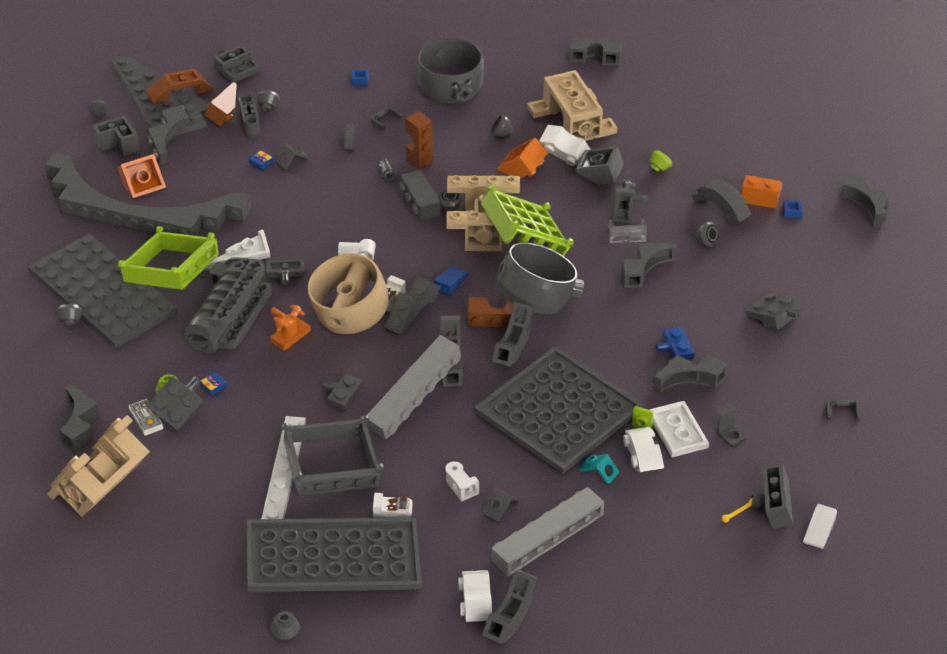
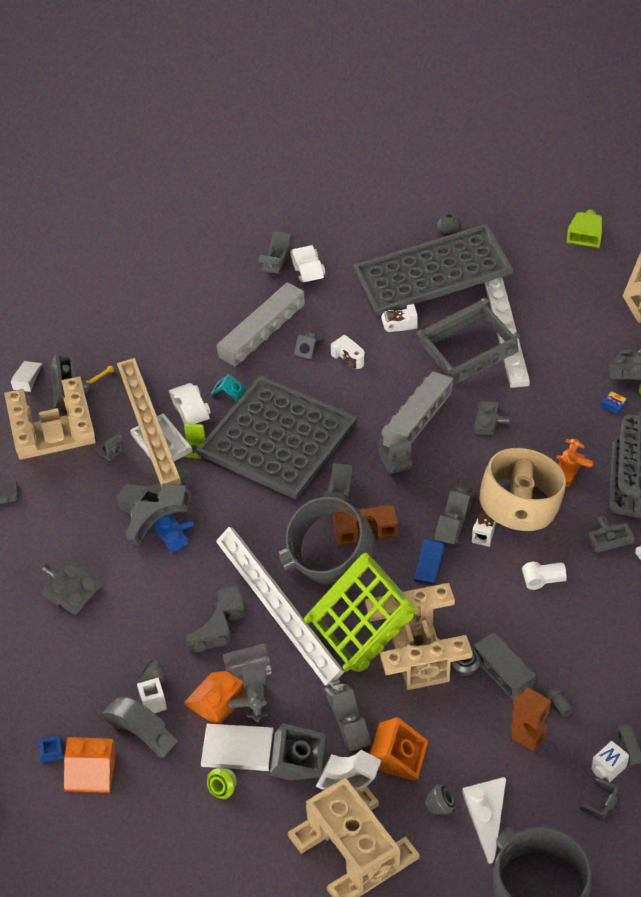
camera: 170 degrees right, 5 degrees up
(128, 579) = (585, 229): none -> lime torso
(369, 129) = (609, 762): none -> white brick
(469, 125) = (485, 808): none -> white wing
(556, 184) = (347, 715): none -> dark grey arch
(593, 268) = (280, 607): none -> white plate
(652, 185) = (237, 747): none -> white tile
(659, 213) = (214, 694): none -> orange slope
(690, 436) = (148, 423): none -> tan plate
(698, 344) = (144, 513): none -> dark grey arch
(709, 212) = (152, 695): none -> white brick
(799, 456) = (52, 432): none -> tan piece

